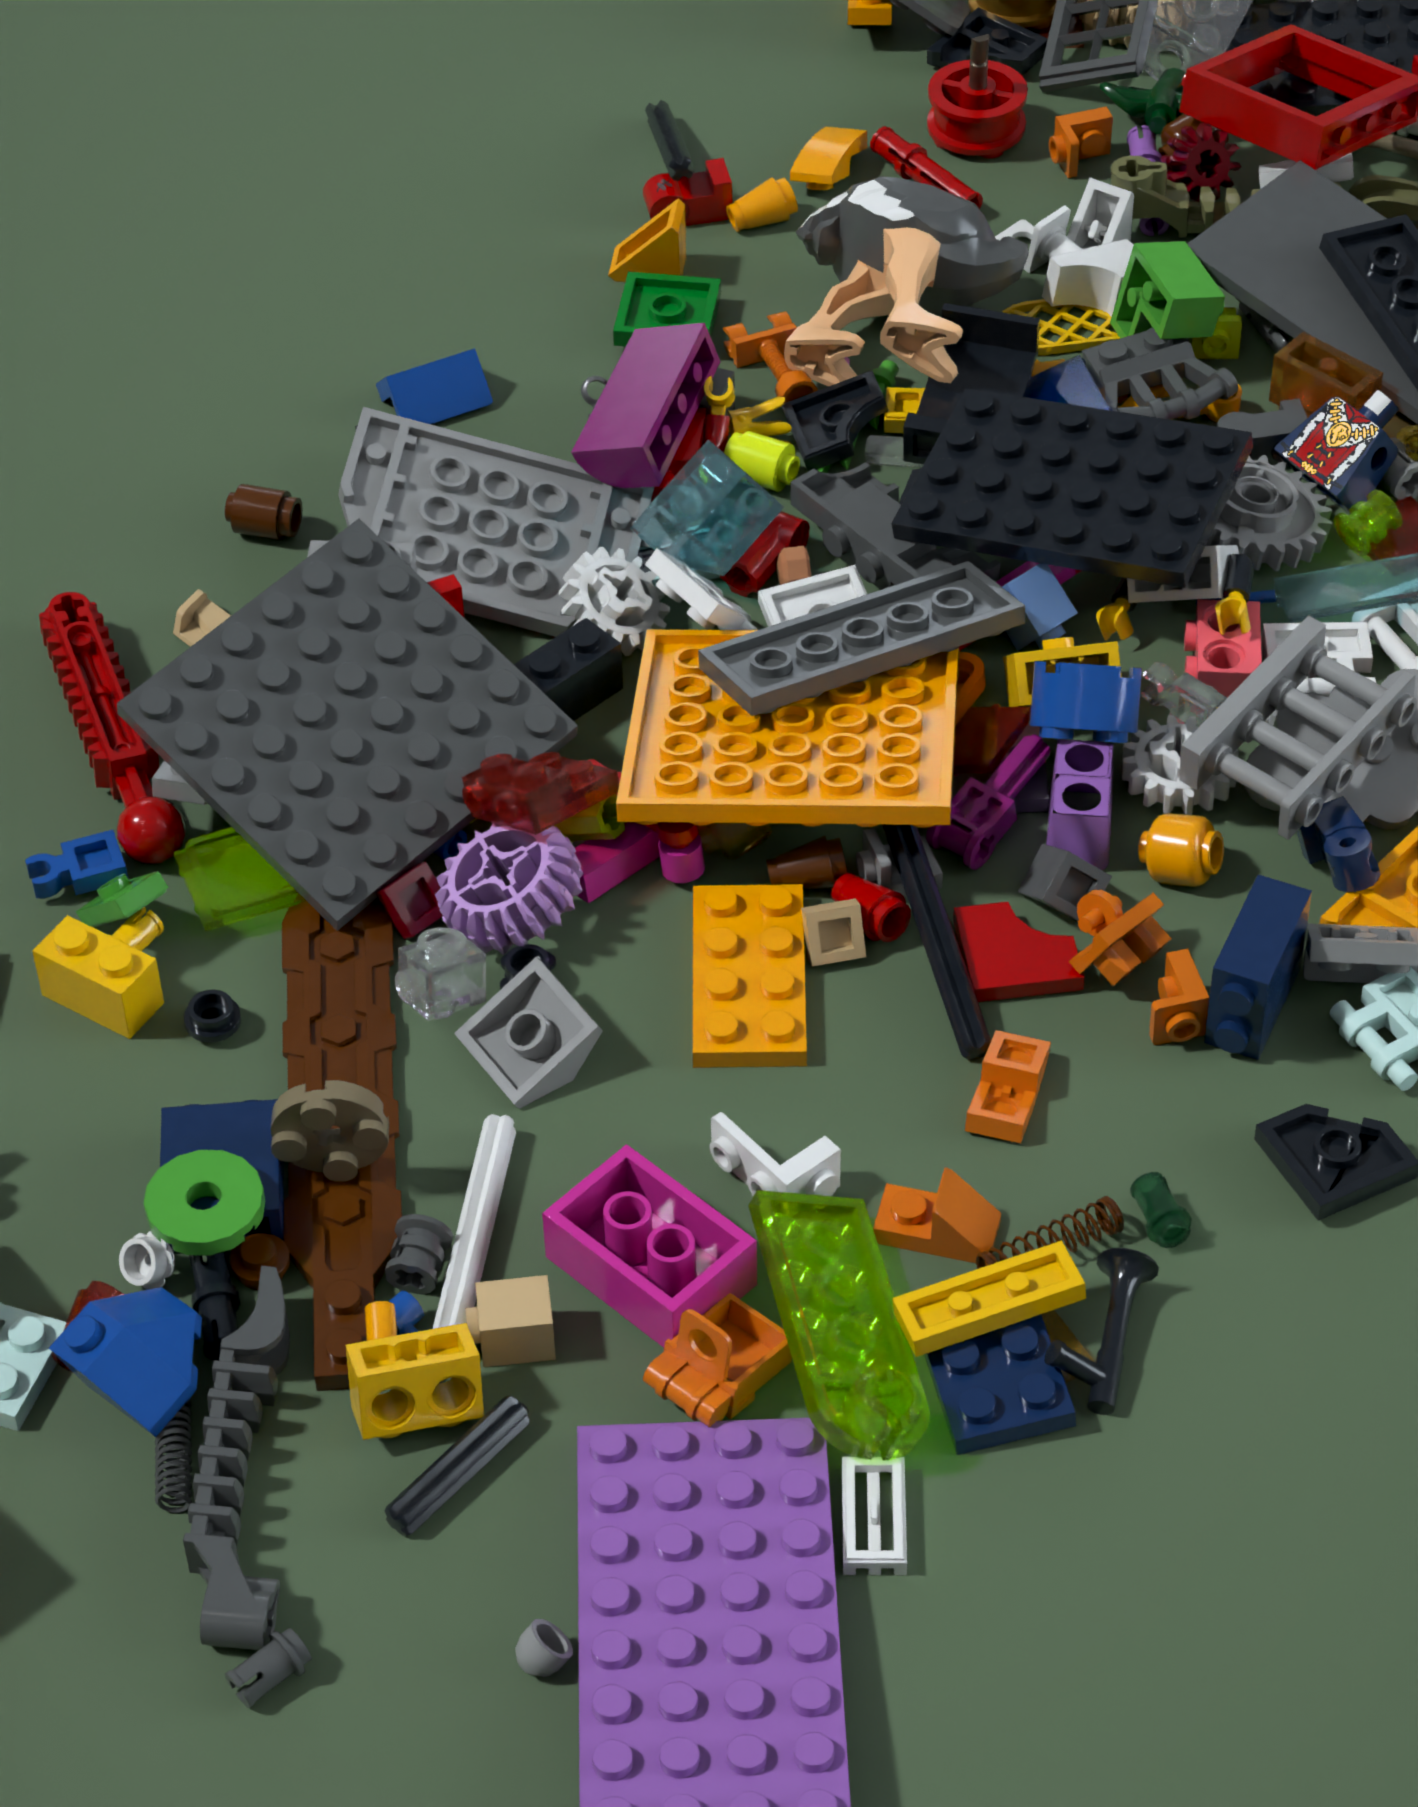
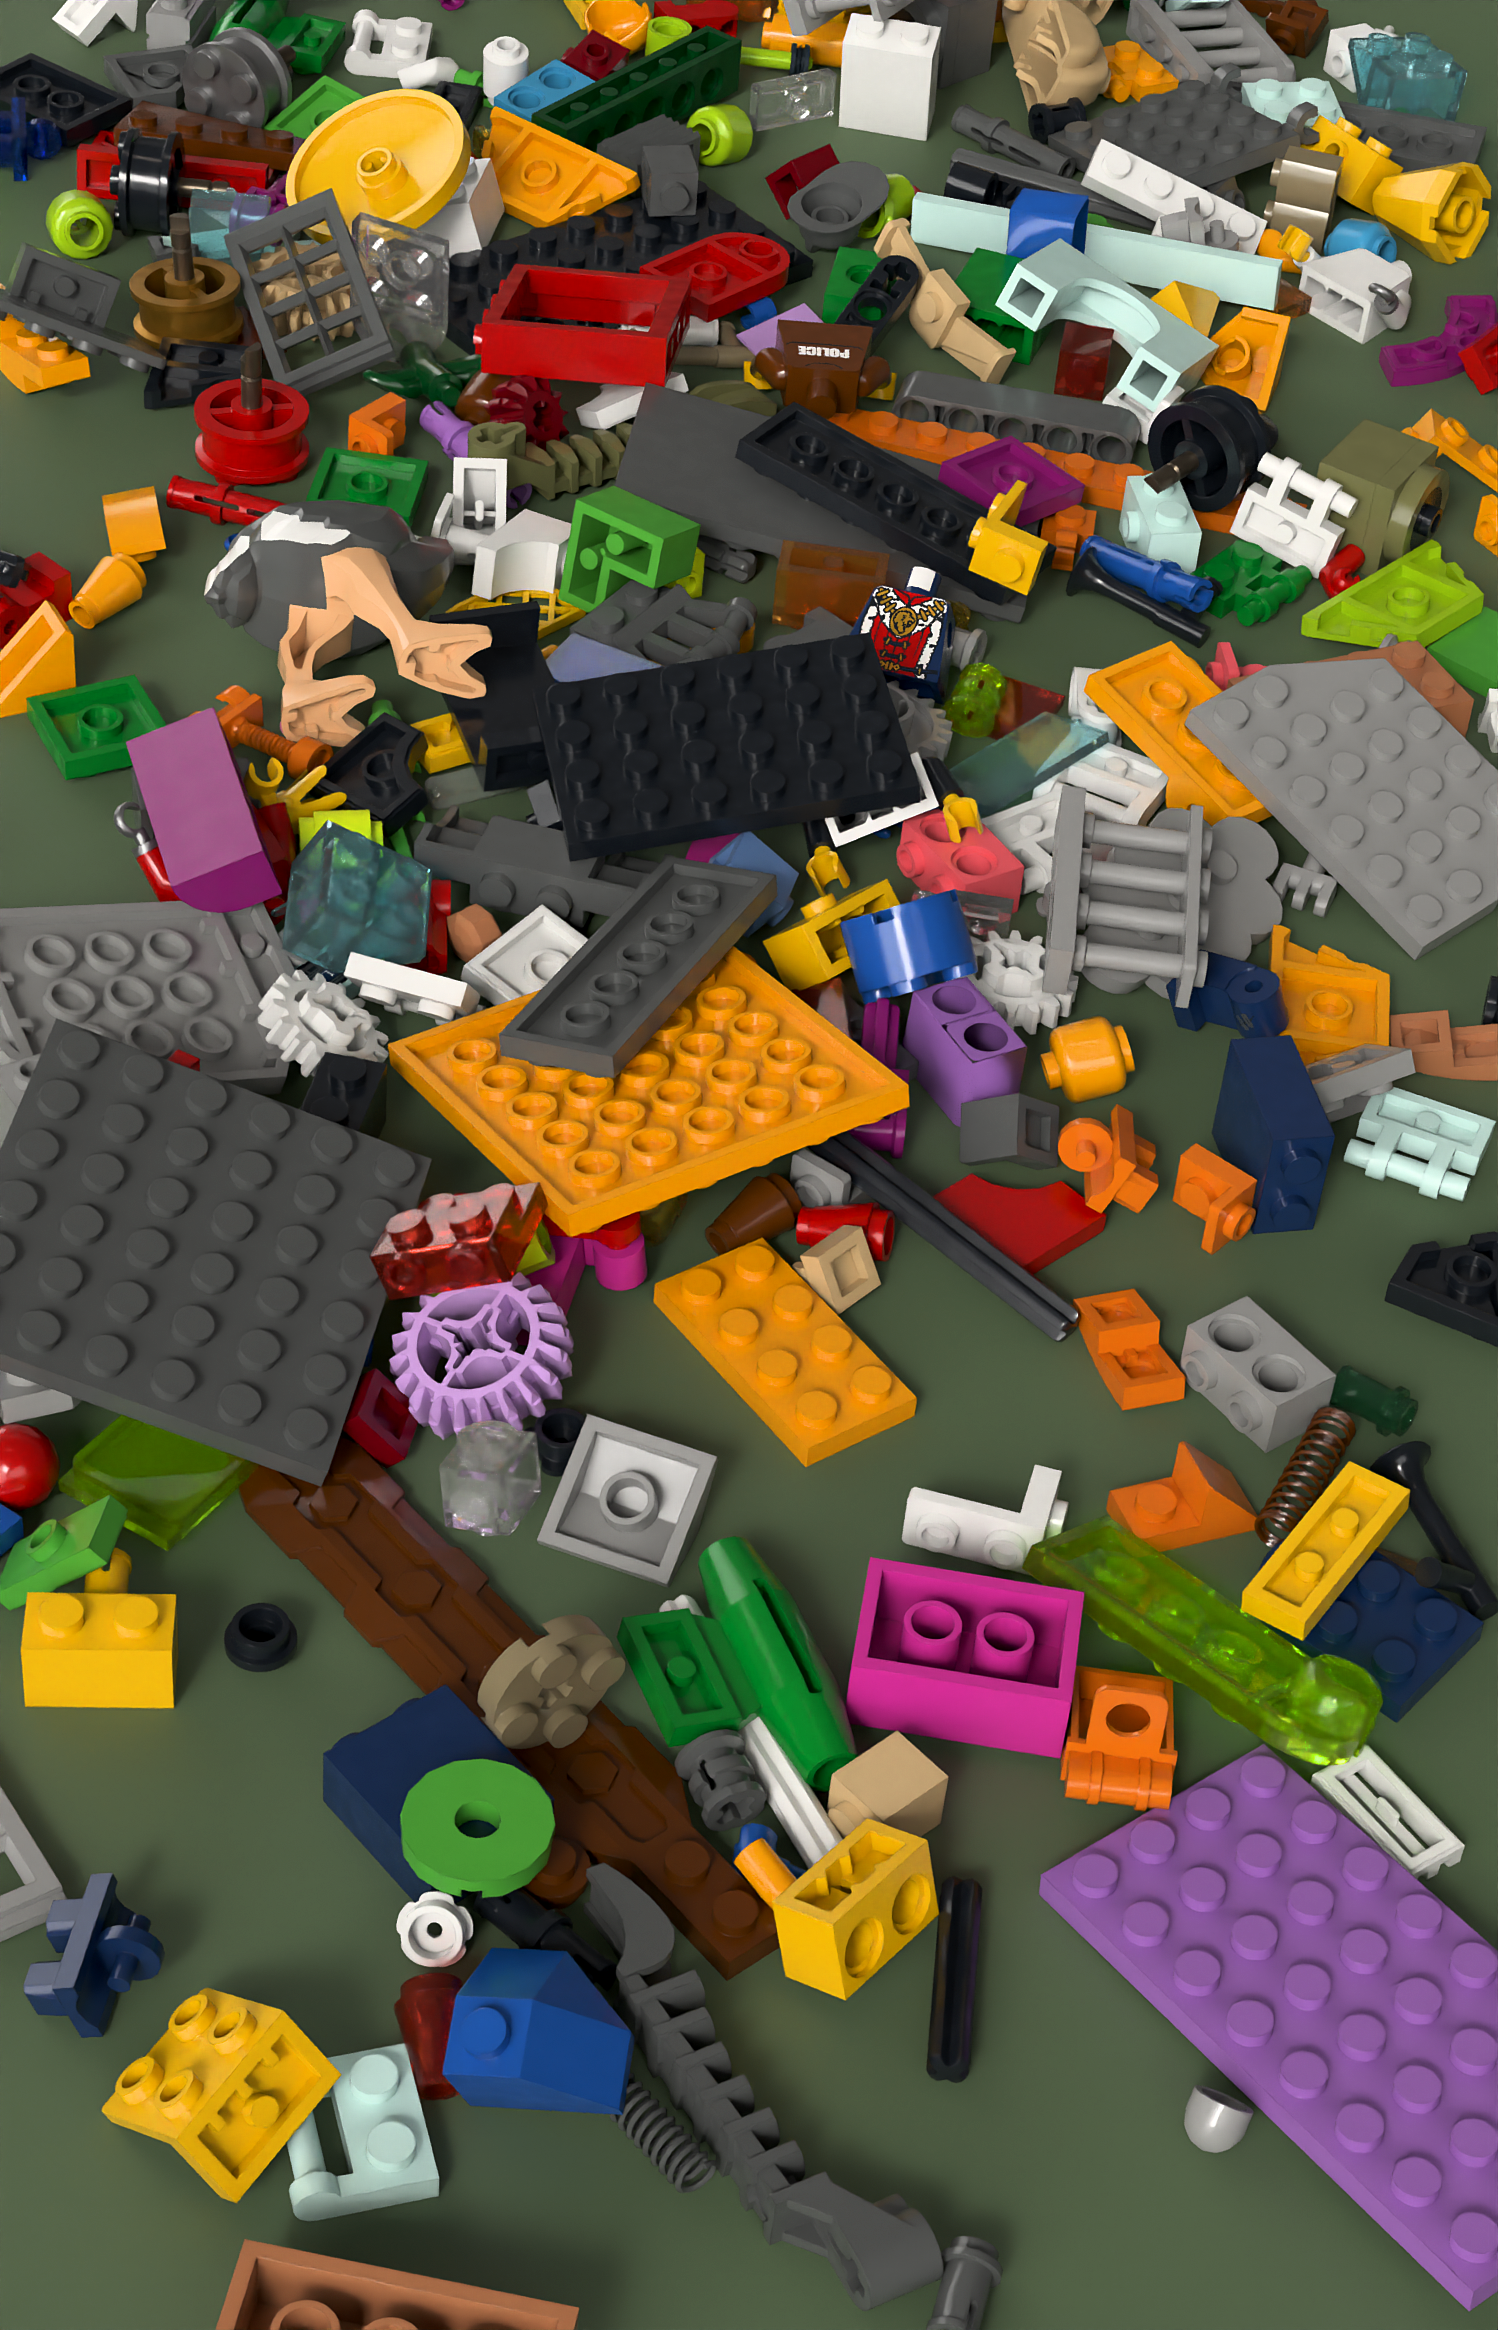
camera: 40 degrees left, 5 degrees down
(473, 1176) = (741, 1665): none -> green plate
(1031, 182) = (371, 480): none -> green plate
(1079, 1145) = (1255, 1373): none -> light grey brick

